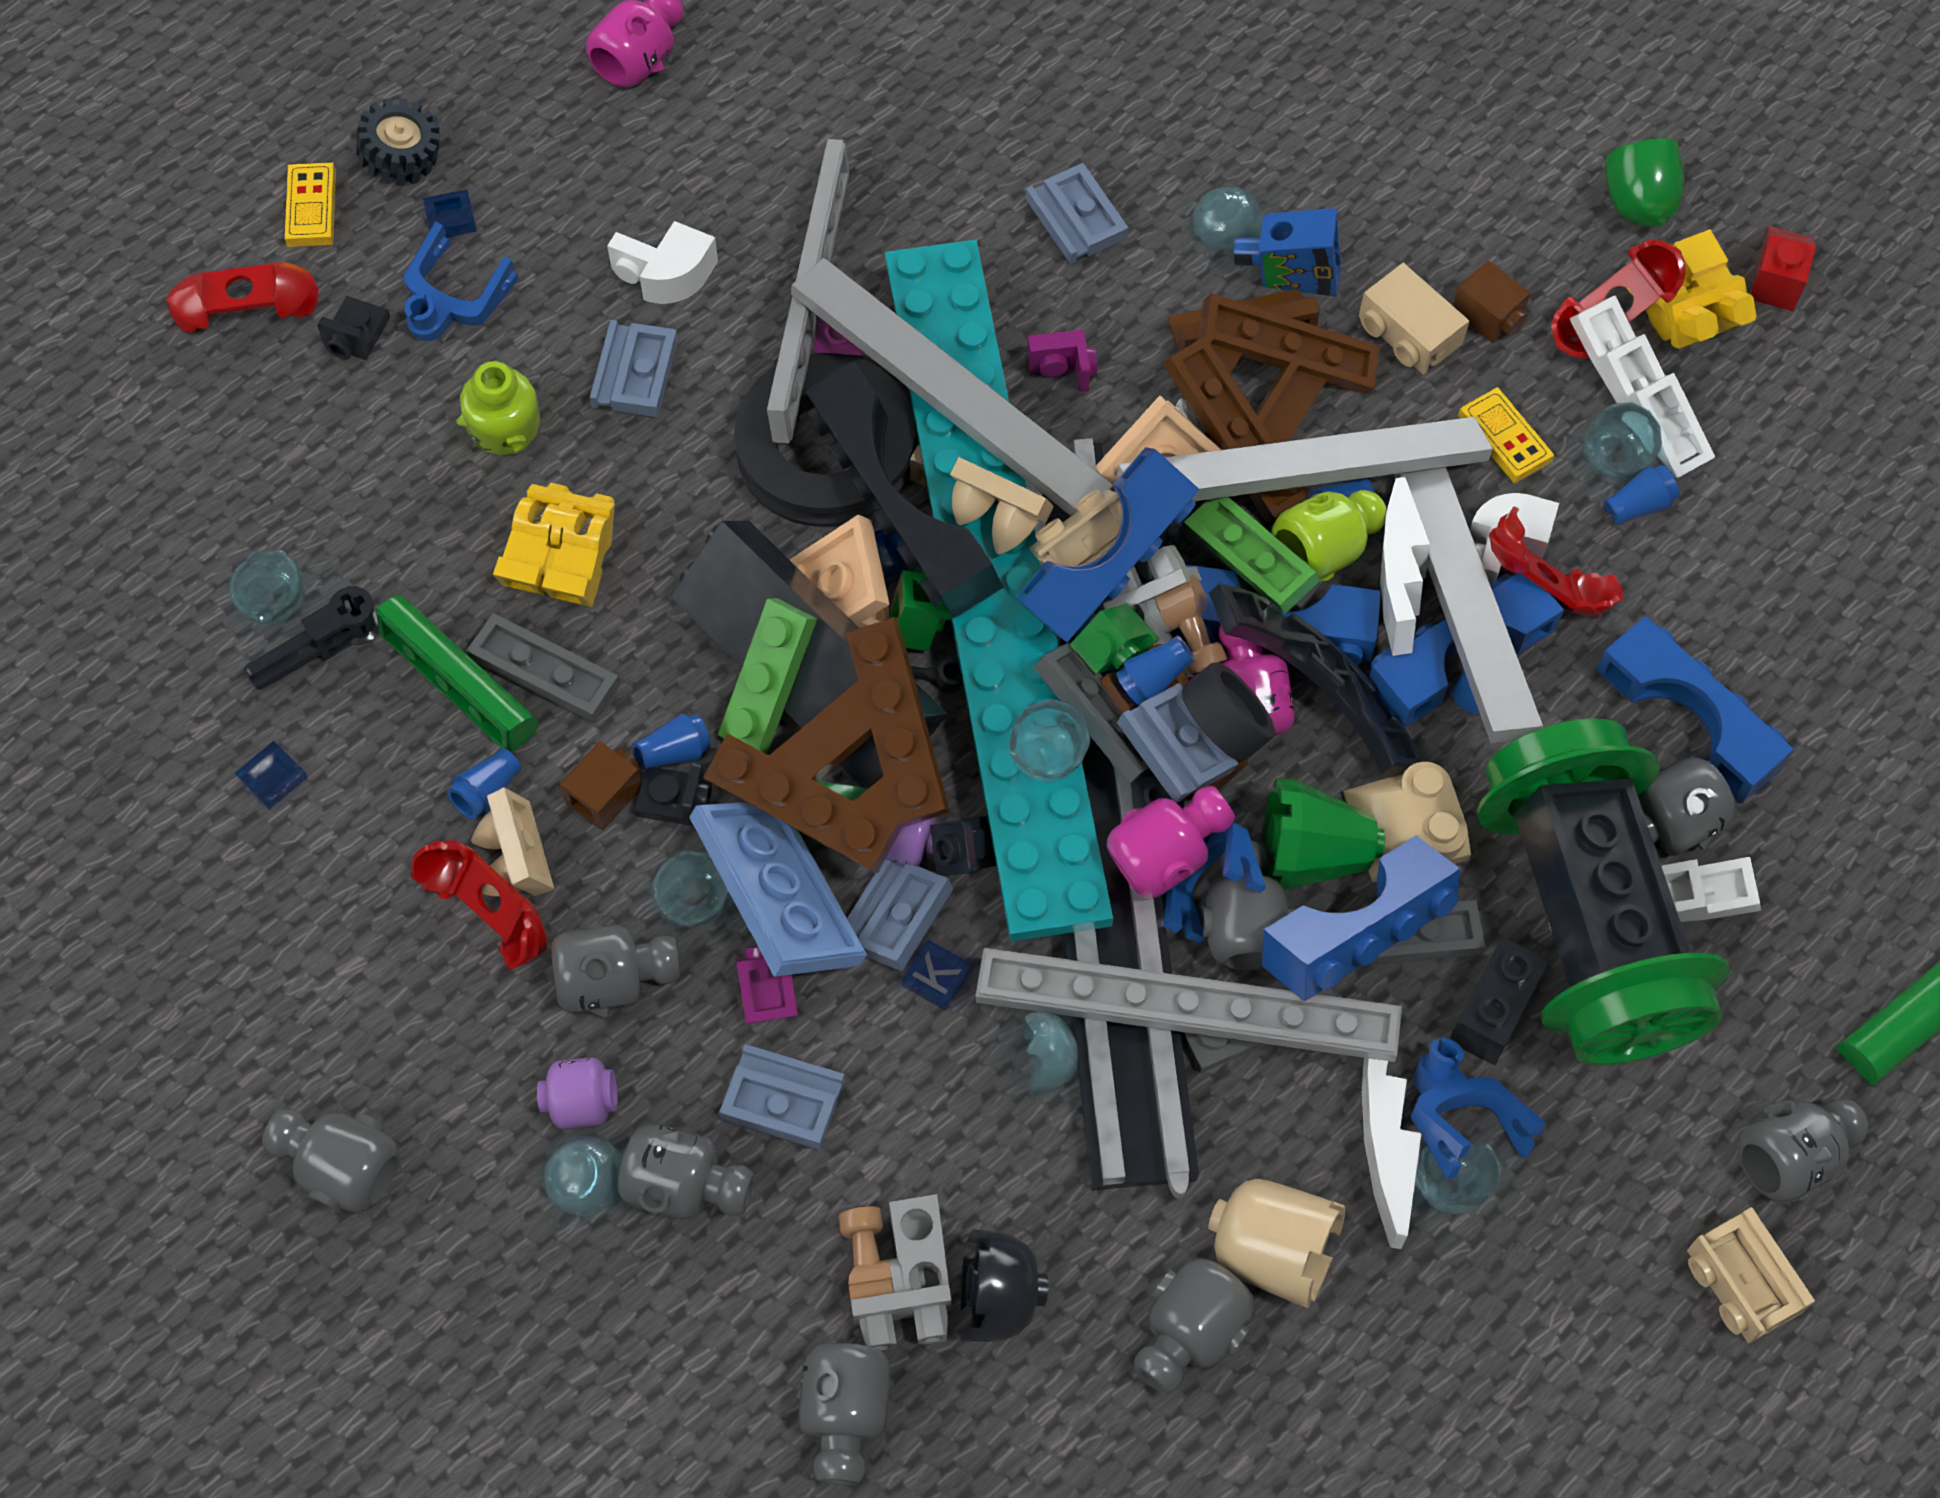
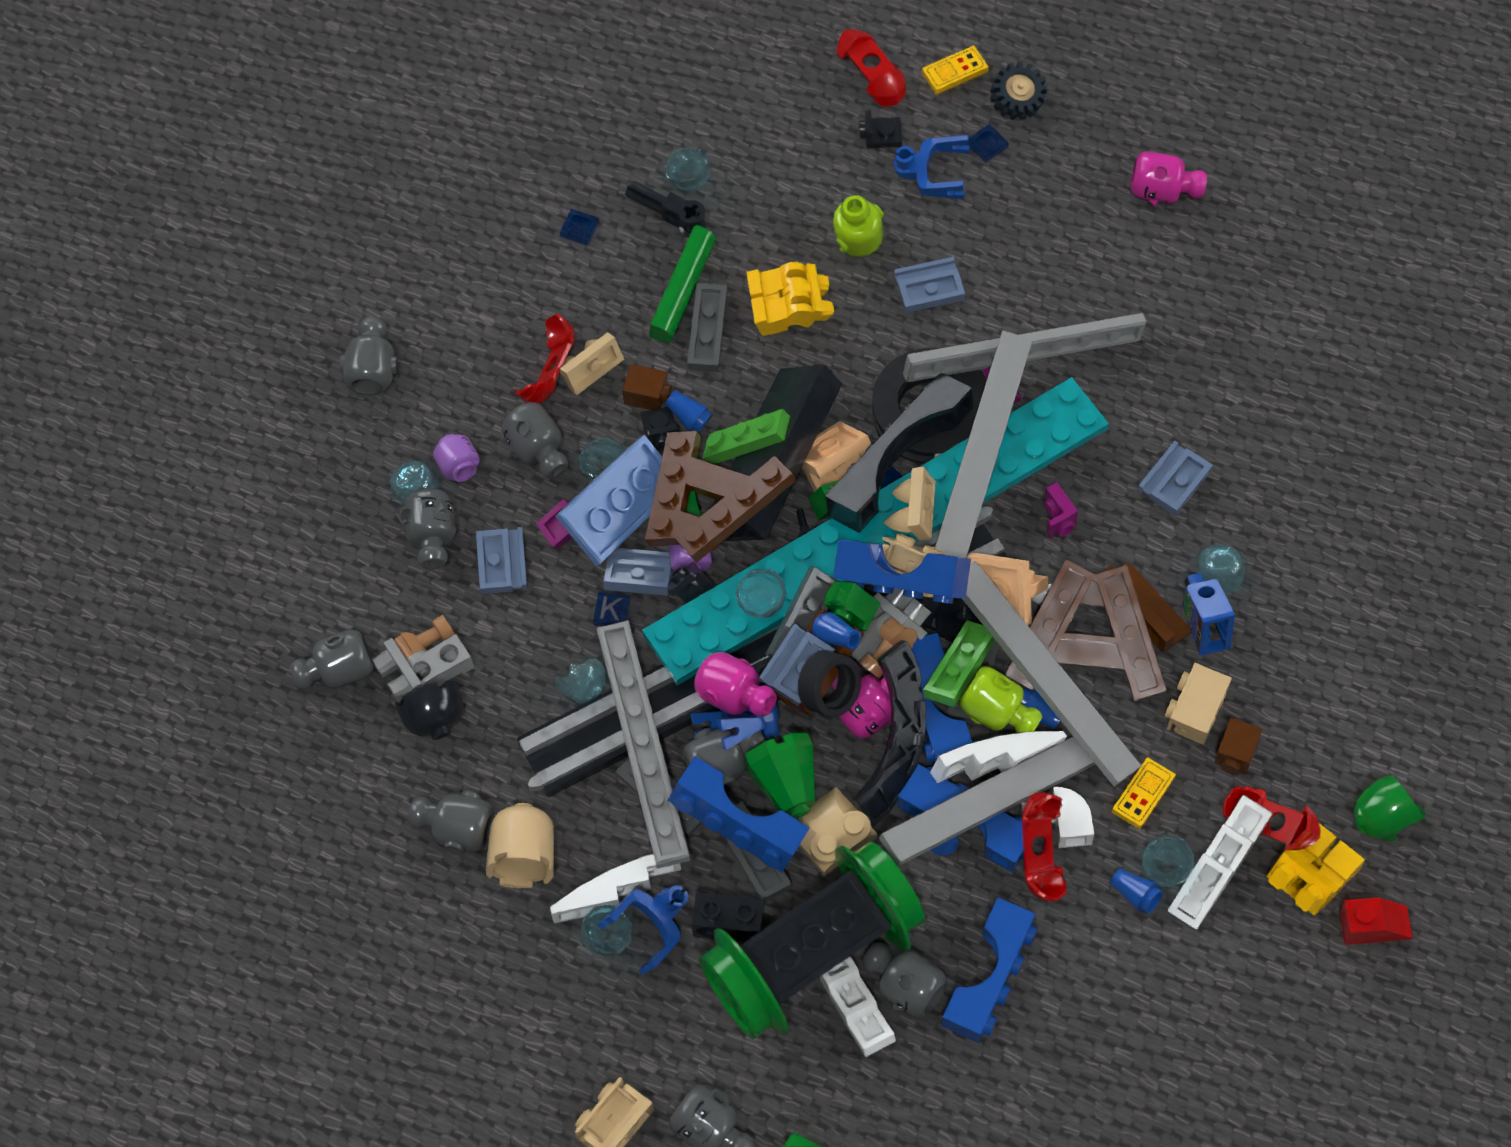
camera: 70 degrees right, 0 degrees up
(473, 785) = (622, 329): blue cone -> none
(672, 269) = (1010, 274): white brick -> none

